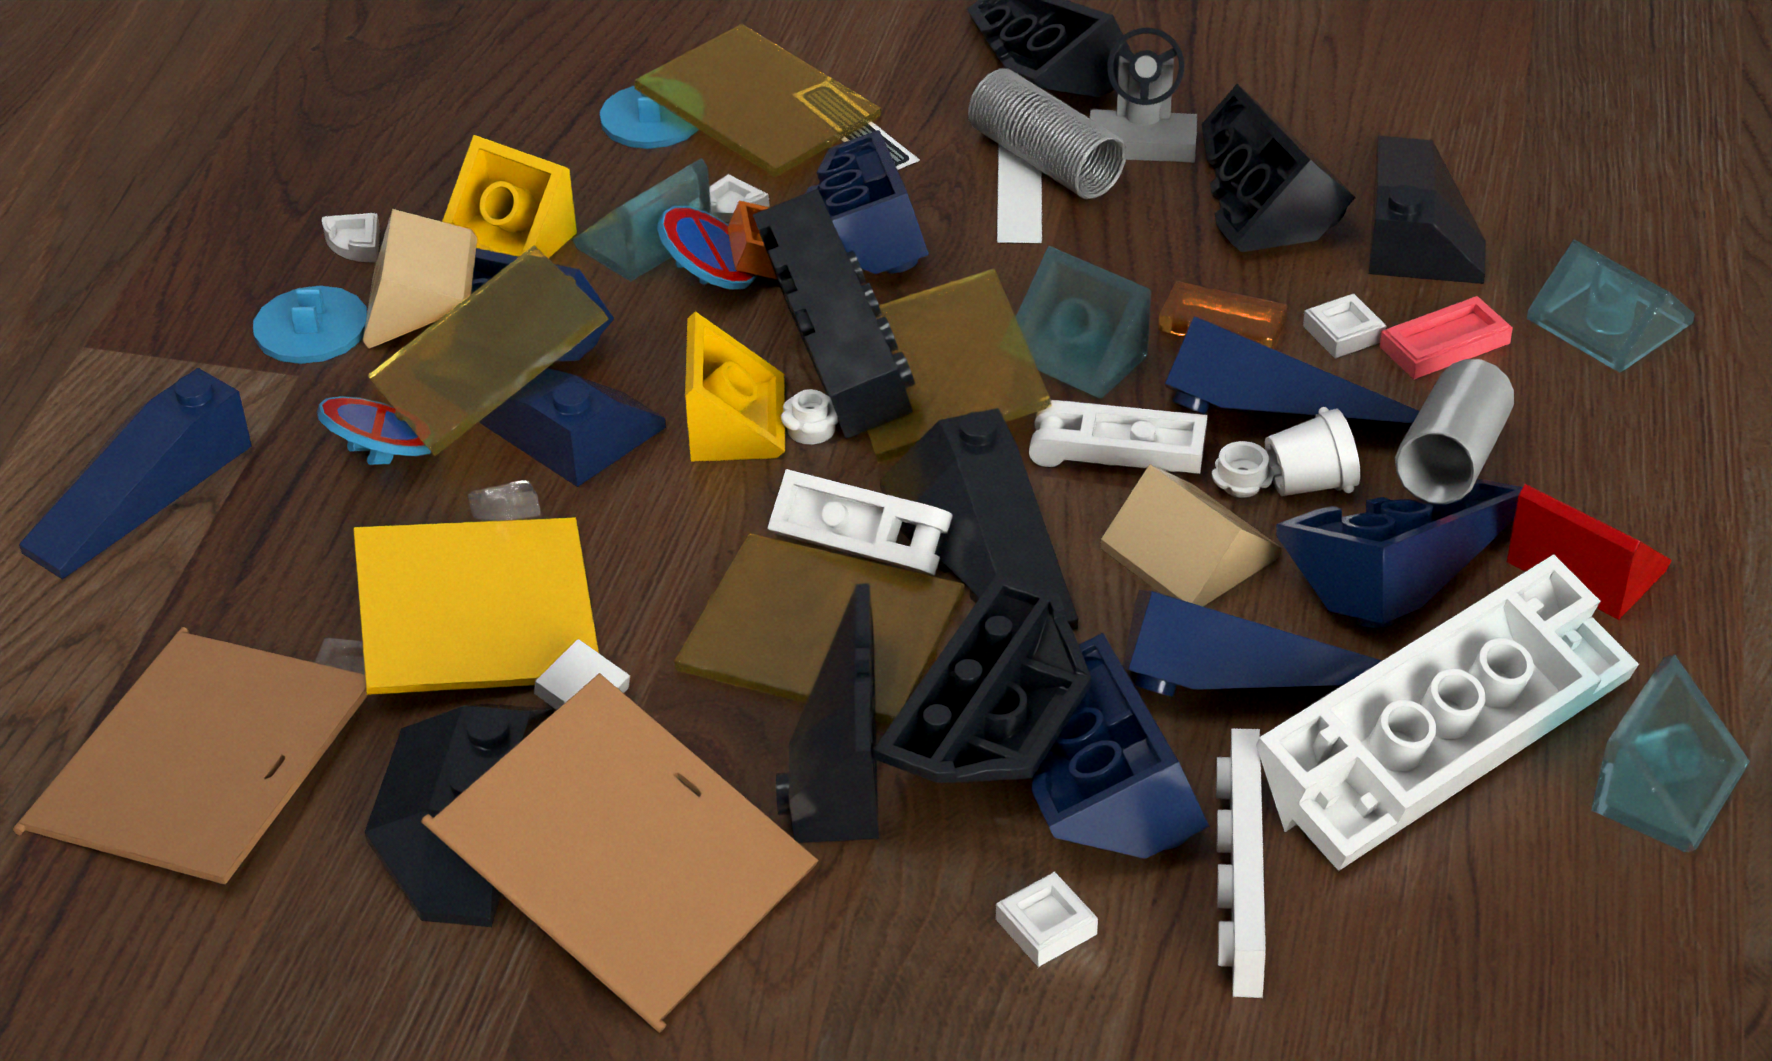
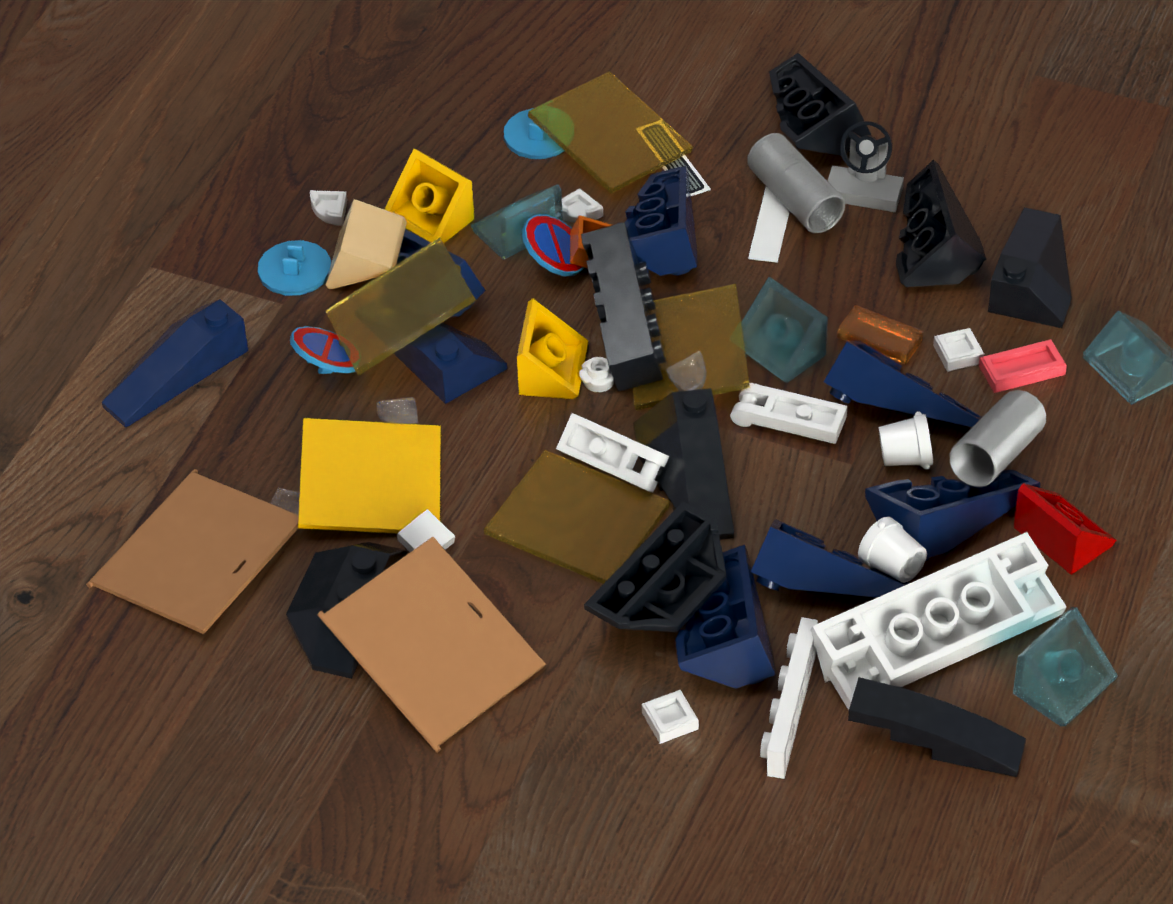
camera: 10 degrees right, 5 degrees up
(831, 758) = (559, 615): black wedge -> none
(952, 394) = (688, 373): none -> clear tile
(1184, 540) = (813, 488): tan slope -> none
(1242, 469) = (862, 445): white plate -> none
(1347, 609) = (892, 550): none -> white piece
(1485, 870) = (931, 723): none -> black slope

